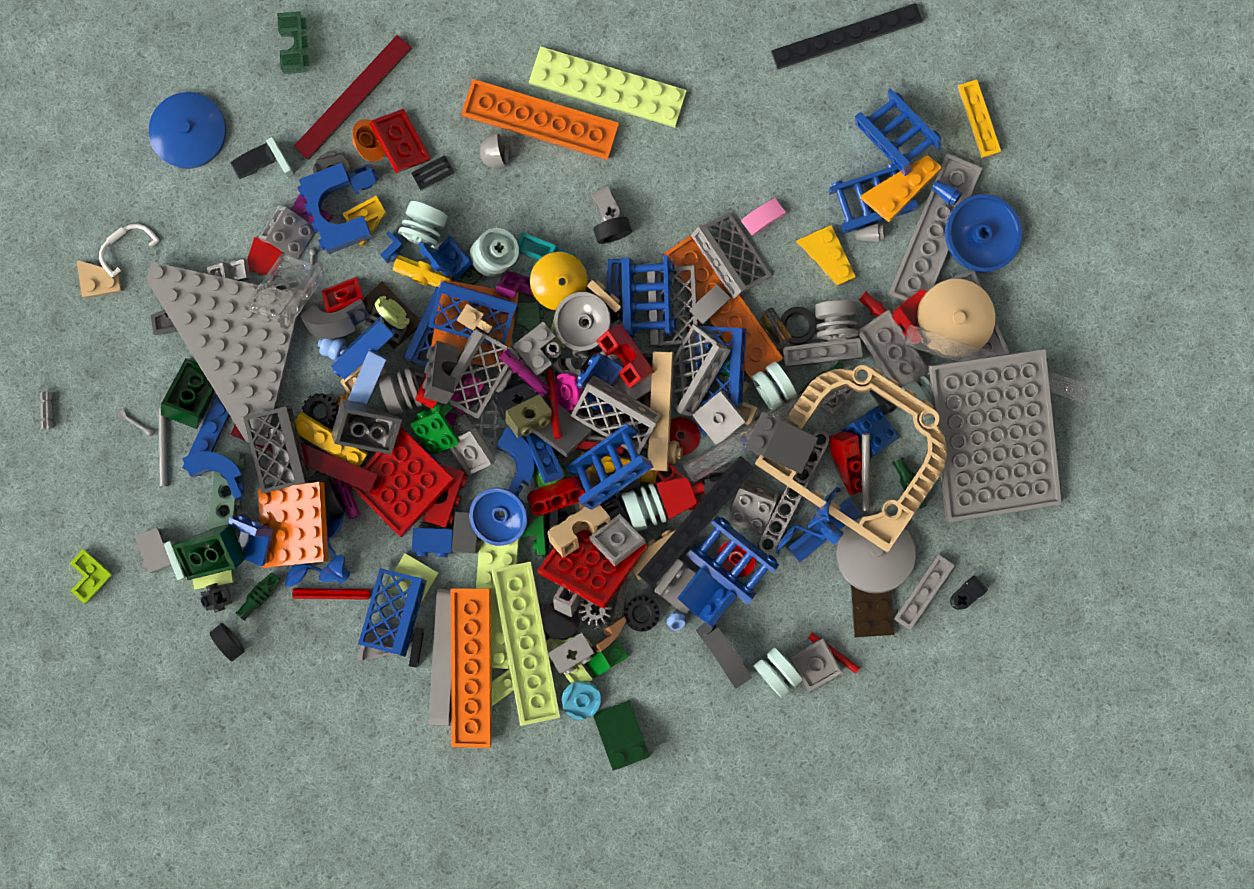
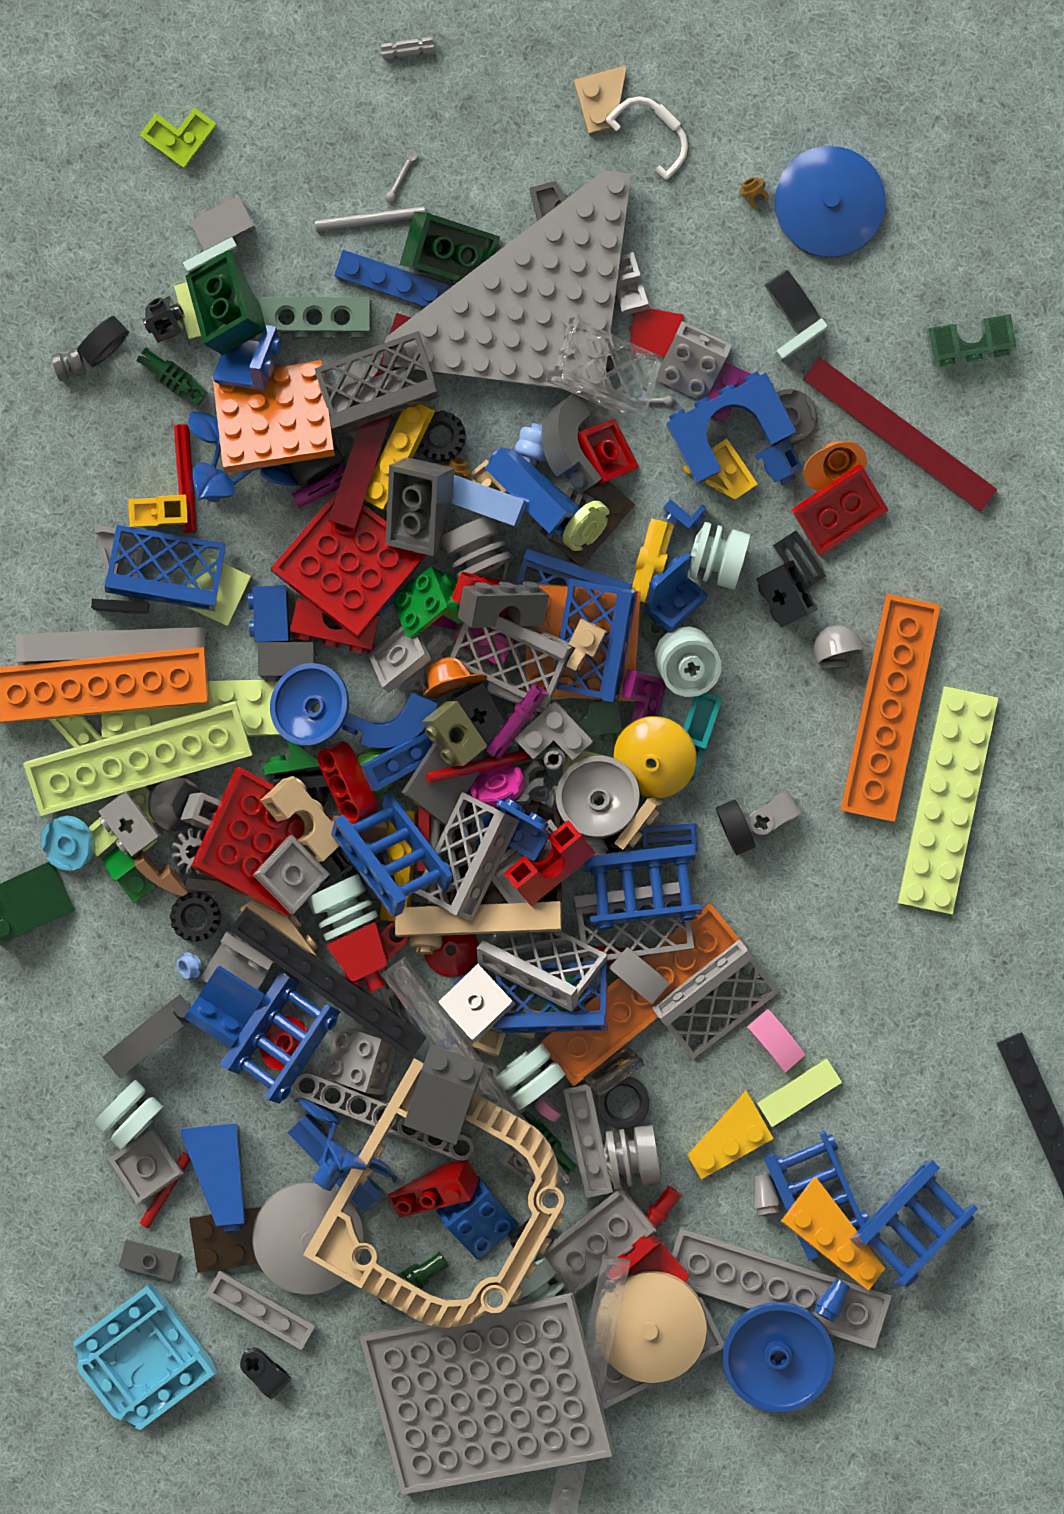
camera: 80 degrees right, 5 degrees up
(171, 181) = (751, 188): none -> pearl gold plate
(204, 462) = (349, 305): blue arch -> none
(241, 673) = (62, 365): none -> dark grey wheel
(352, 613) = (157, 511): none -> yellow brick
(445, 186) = (798, 600): none -> black brick
(487, 417) = (447, 676): none -> orange piece
(798, 378) = (547, 1109): none -> bright pink tile
(800, 205) = (799, 1092): none -> yellowish green tile
(820, 612) = (218, 1165): none -> blue slope
(865, 472) = (421, 1215): light grey bar -> none
(882, 668) = (149, 1260): none -> dark grey plate
(952, 679) = (142, 1358): none -> medium azure wedge
(979, 118) = (947, 1339): yellow plate -> none

